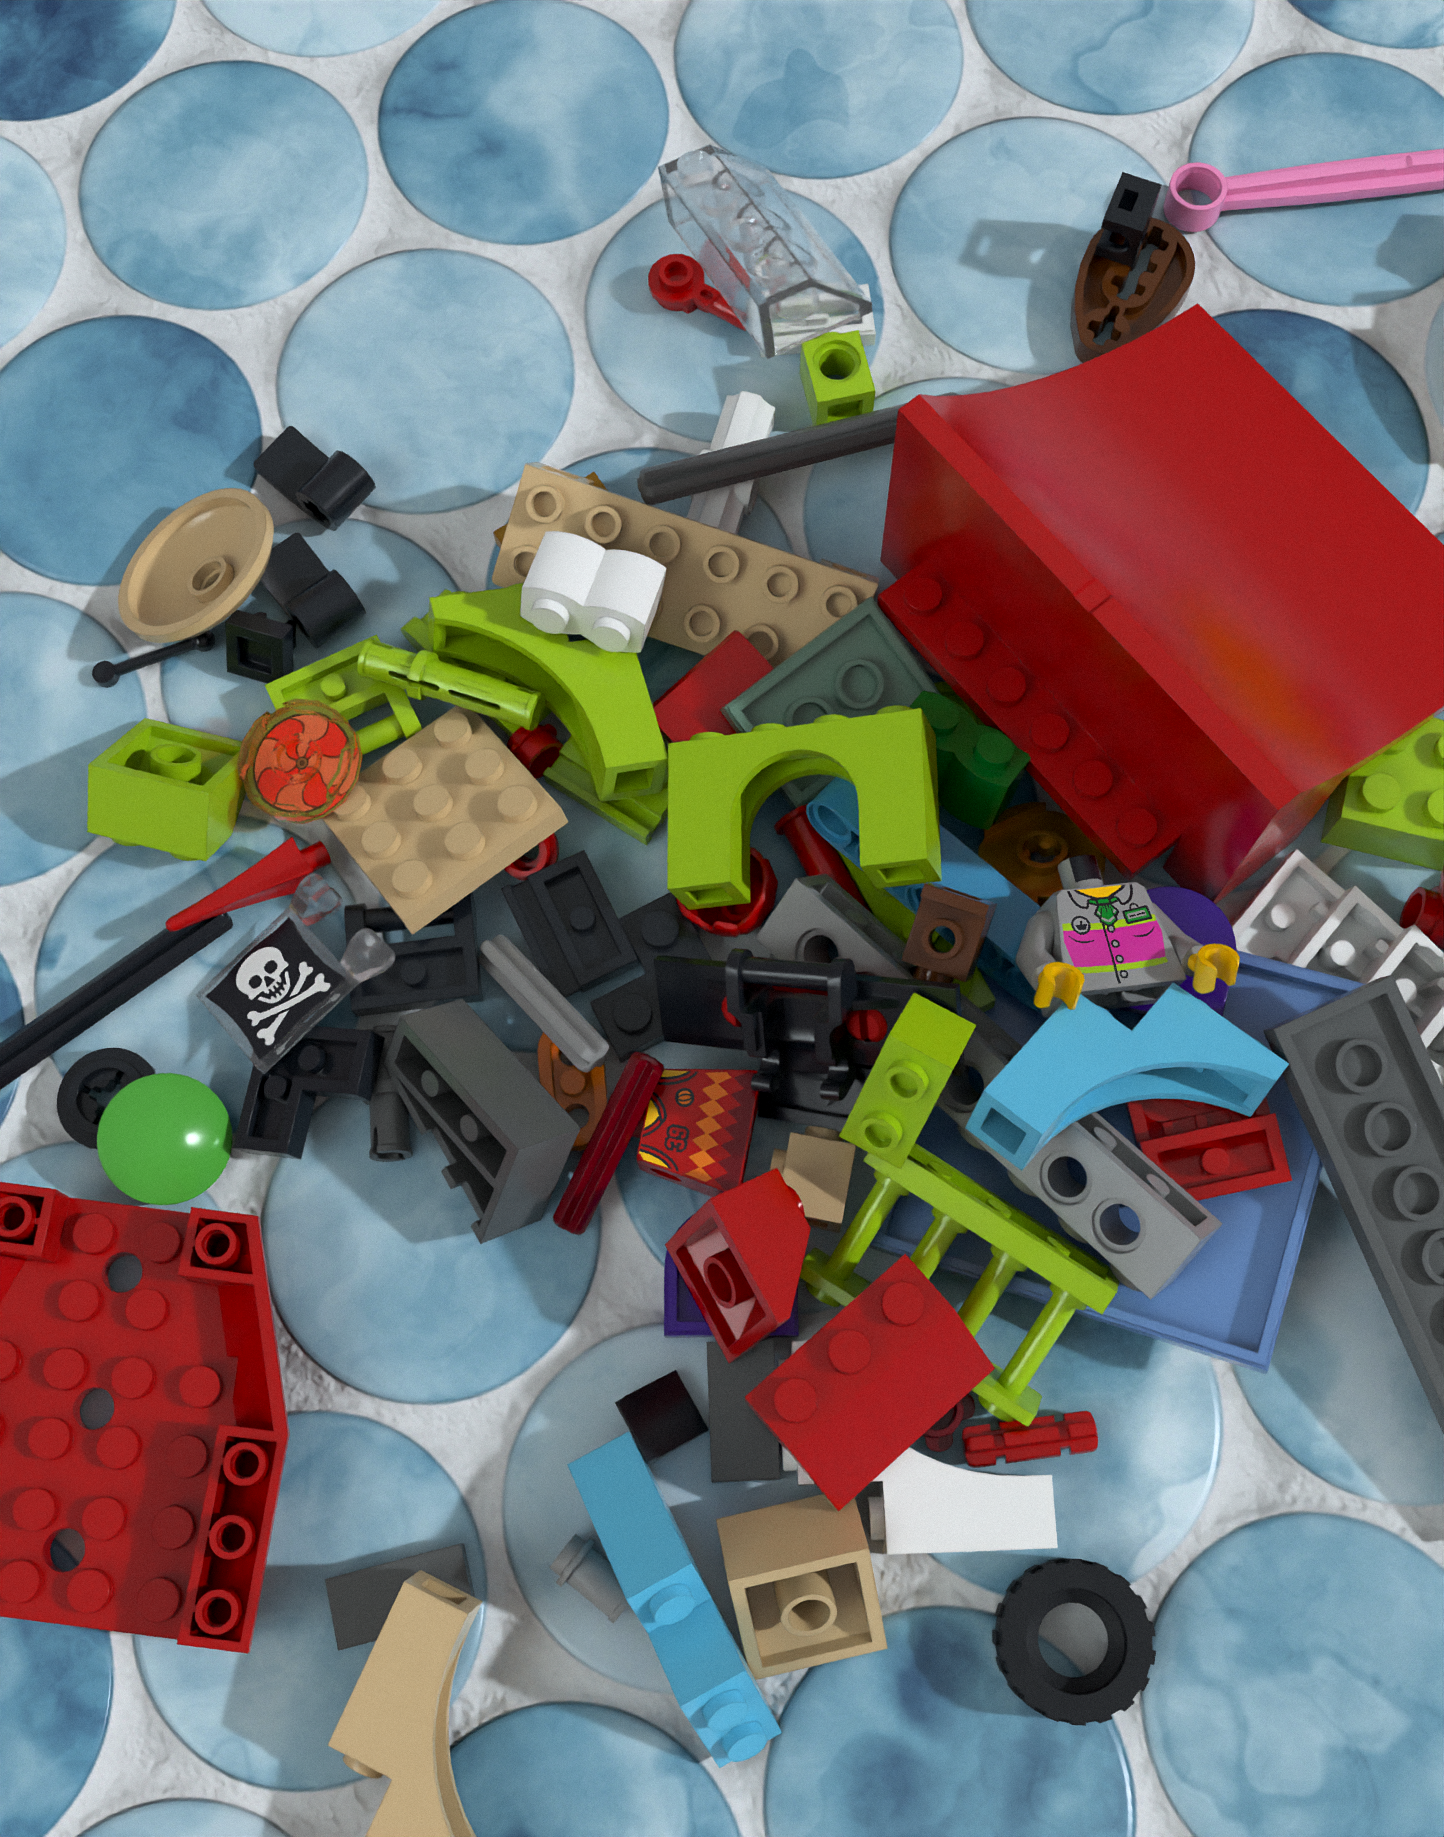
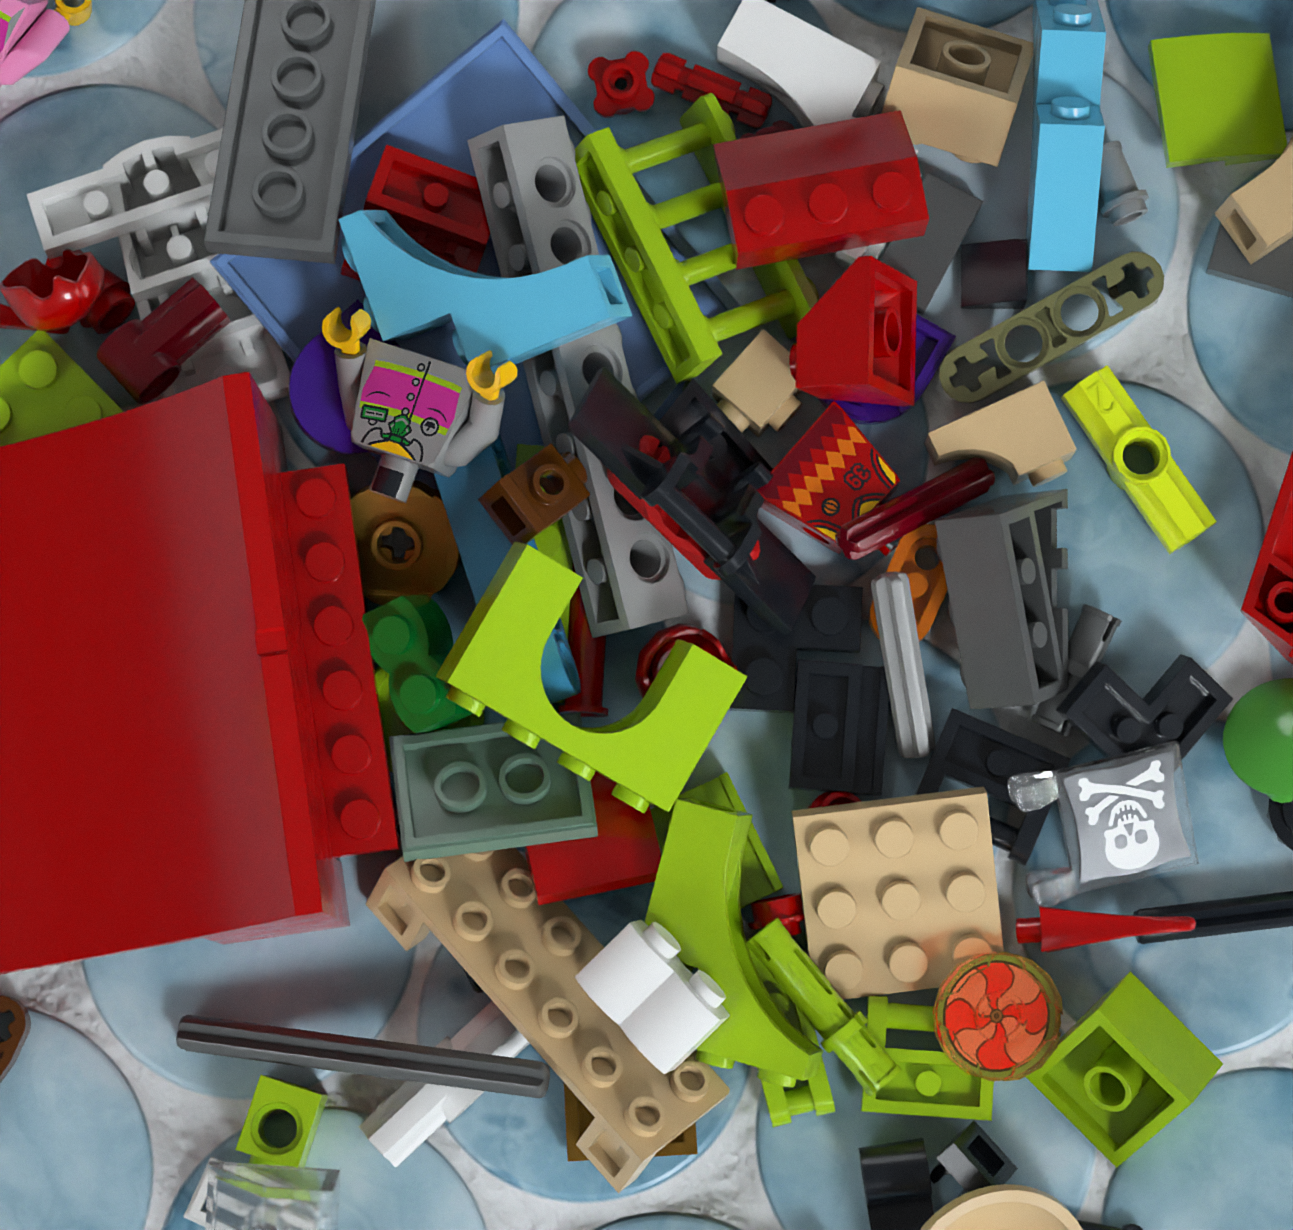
camera: 150 degrees left, 10 degrees up
(392, 1299) = (1116, 423): none -> neon yellow piece
(541, 1728) = (1217, 98): none -> lime slope
(560, 1270) = (1015, 434): none -> tan arch
(570, 1387) = (1047, 320): none -> olive beam
(907, 1080) = (654, 379): lime brick -> none
(1114, 1413) = (615, 101): none -> red plate
(1363, 882) = (150, 352): none -> dark red piece

